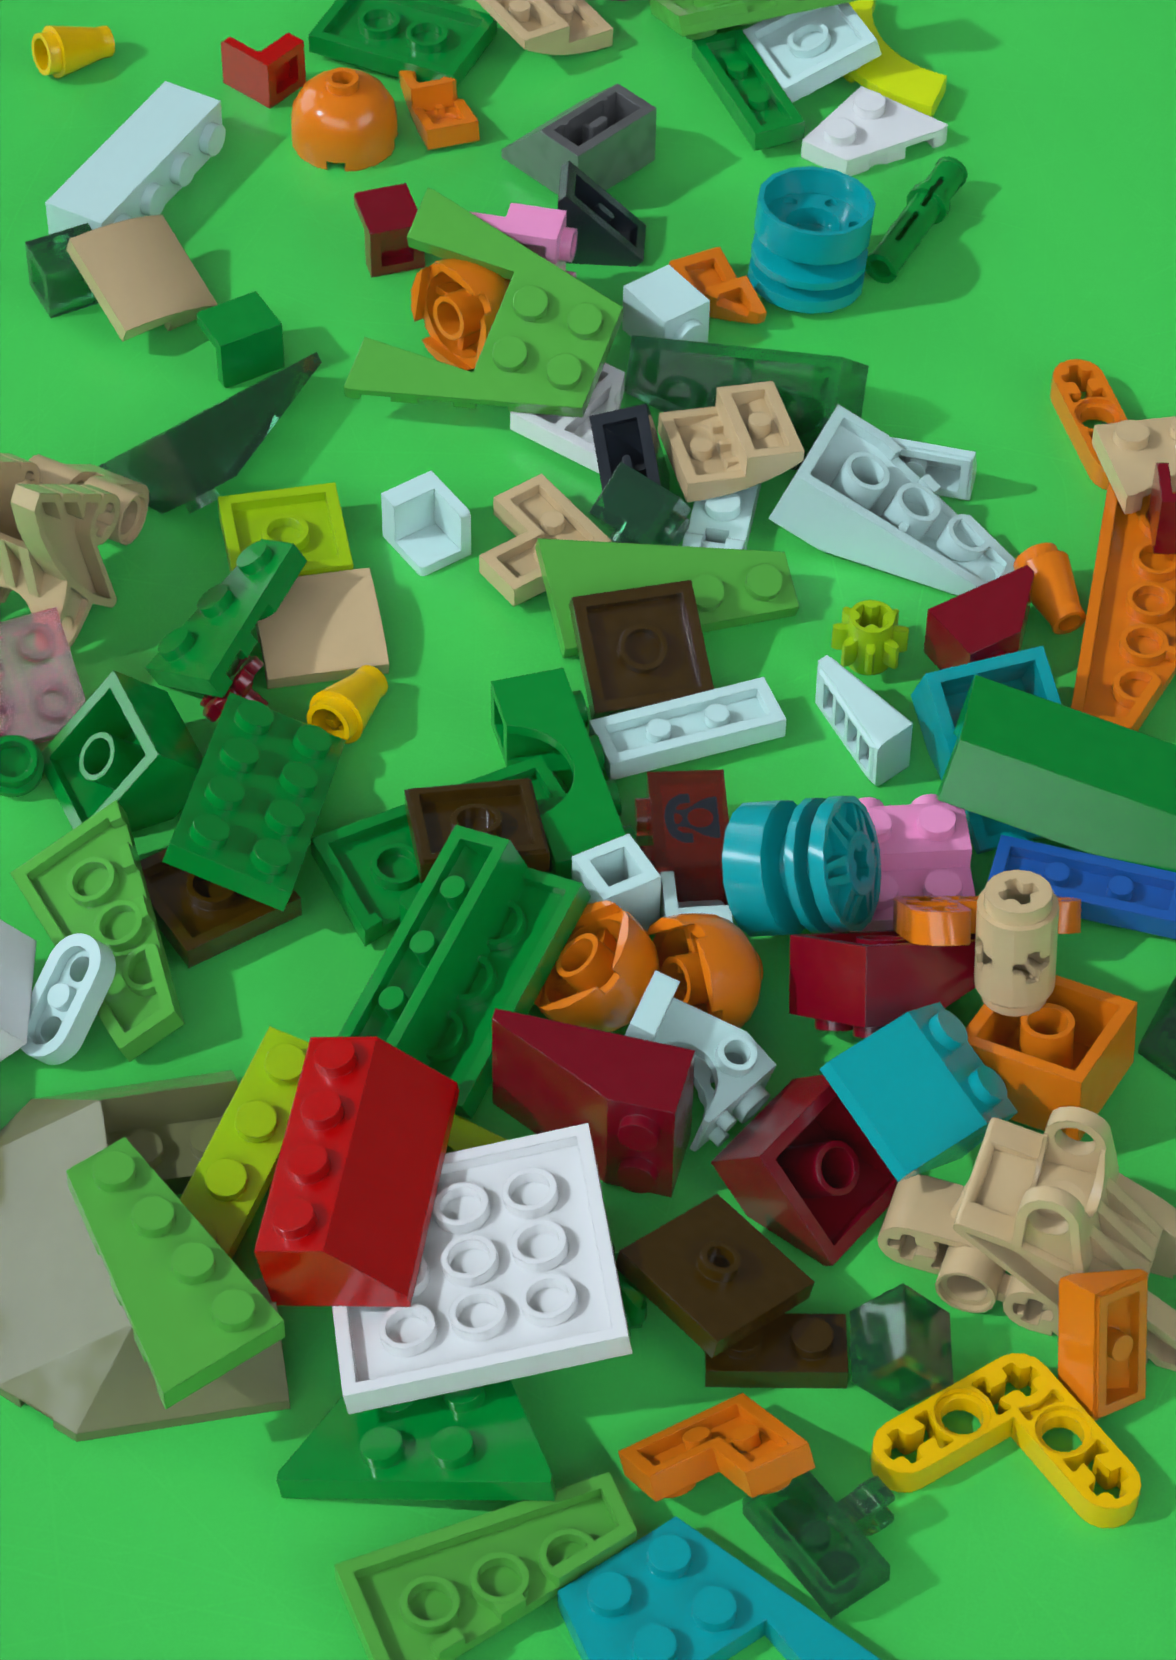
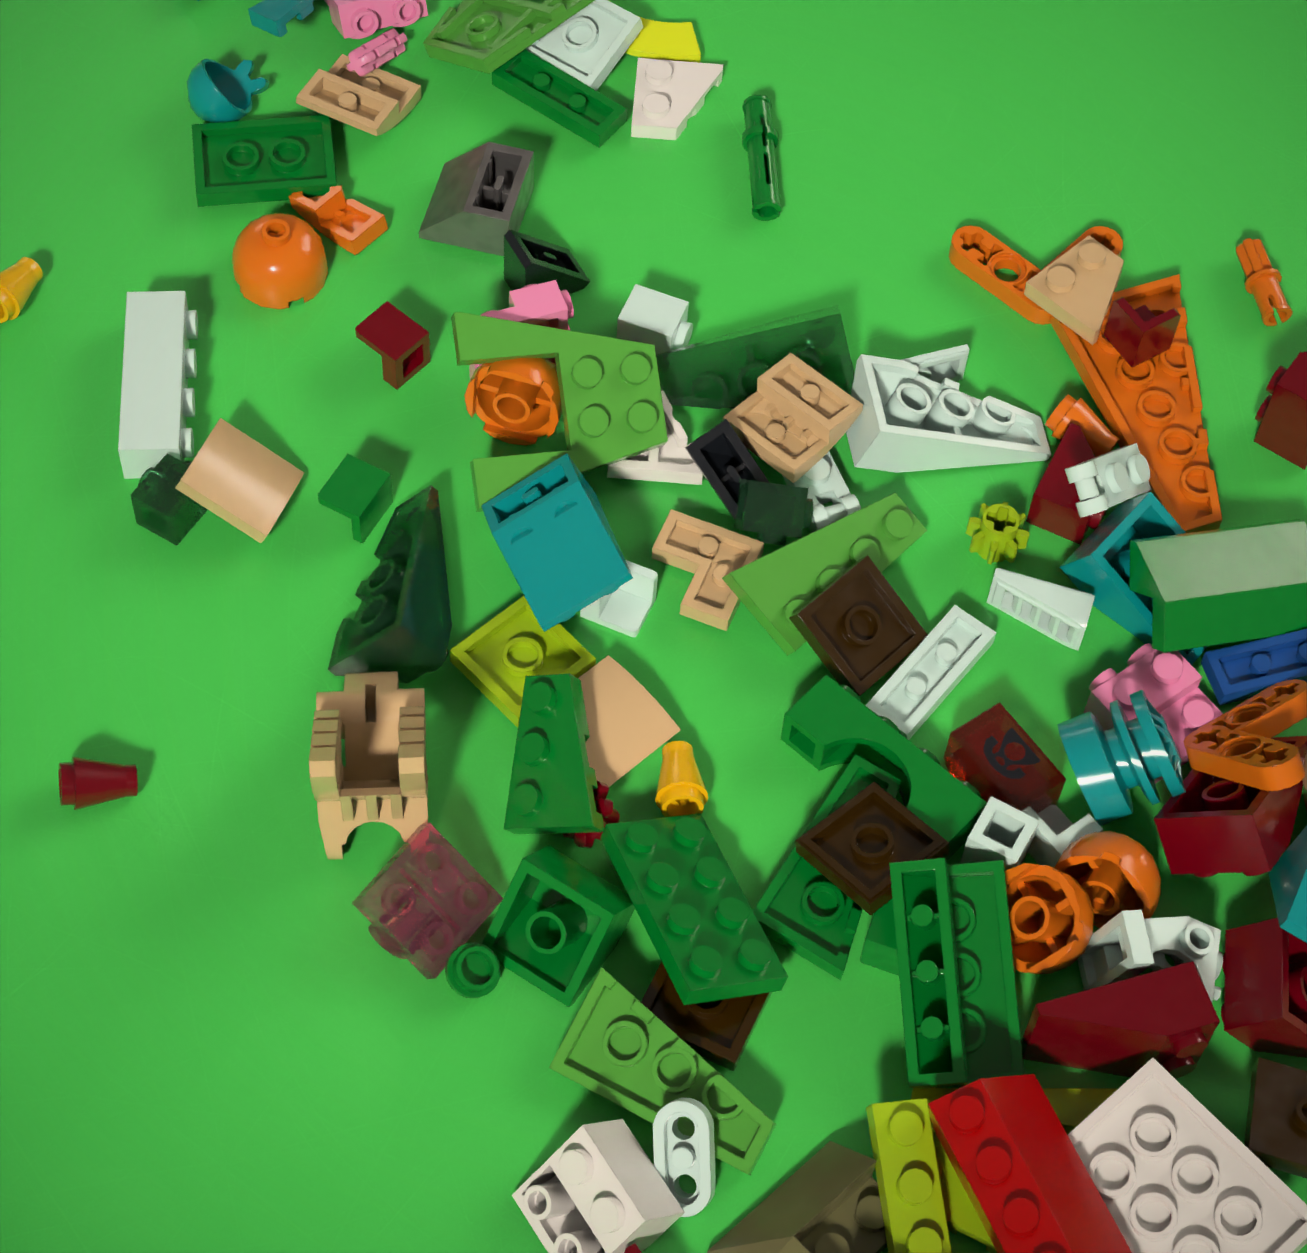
camera: 35 degrees left, 10 degrees up
(265, 74) = (178, 245): red panel -> none
(387, 436) = (557, 542): none -> teal slope
(729, 296) = (657, 274): orange slope -> none
(811, 239) = (719, 213): teal wheel -> none
(1010, 619) = (1109, 479): none -> light aqua plate

